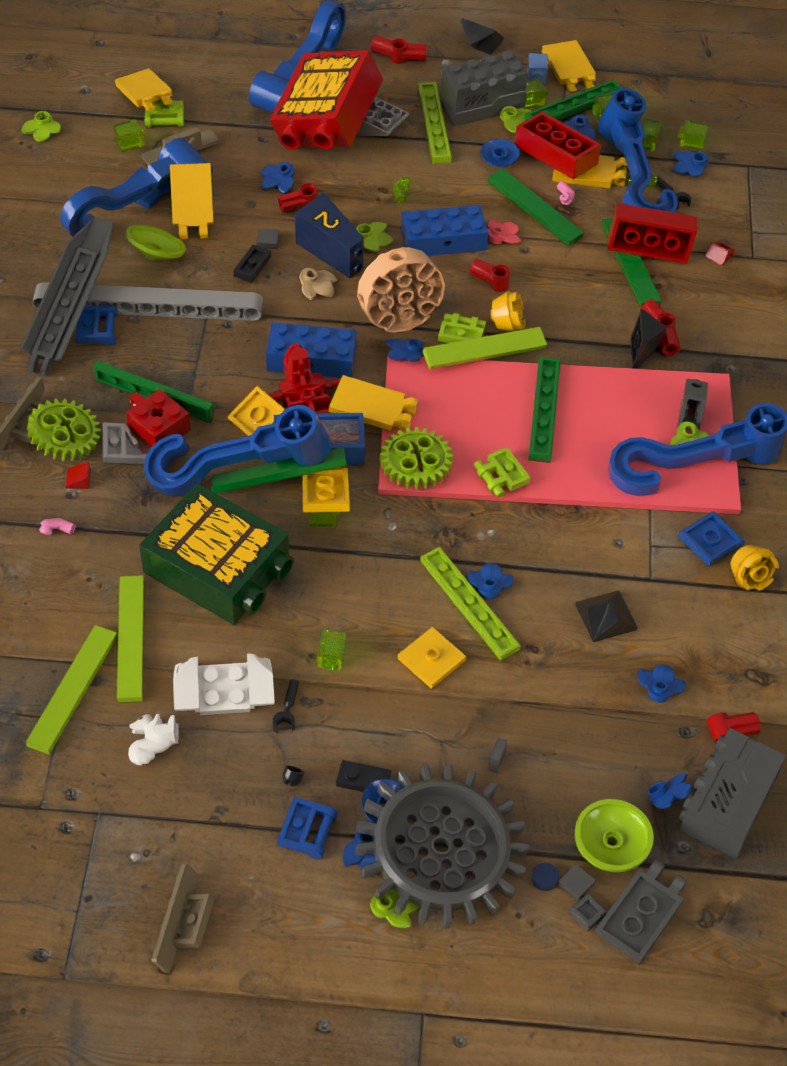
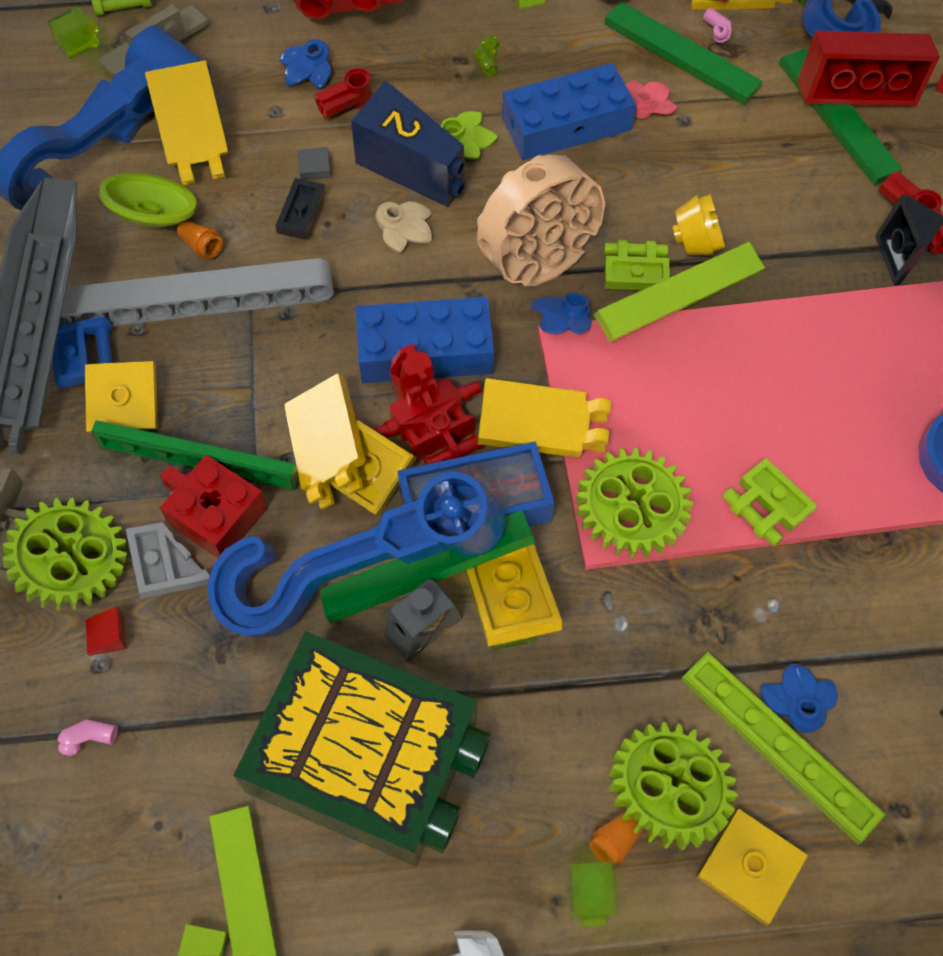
camera: 10 degrees left, 10 degrees up
(115, 349) = (121, 394): none -> yellow plate
(184, 272) = (200, 239): none -> orange cone
(235, 393) = (325, 440): none -> yellow tile
(269, 496) = (423, 618): none -> dark grey torso
(356, 627) = (614, 840): none -> orange cone
(395, 606) = (661, 813): none -> lime gear
(496, 275) = (661, 169): red piece -> none
(544, 410) = (797, 381): green tile -> none

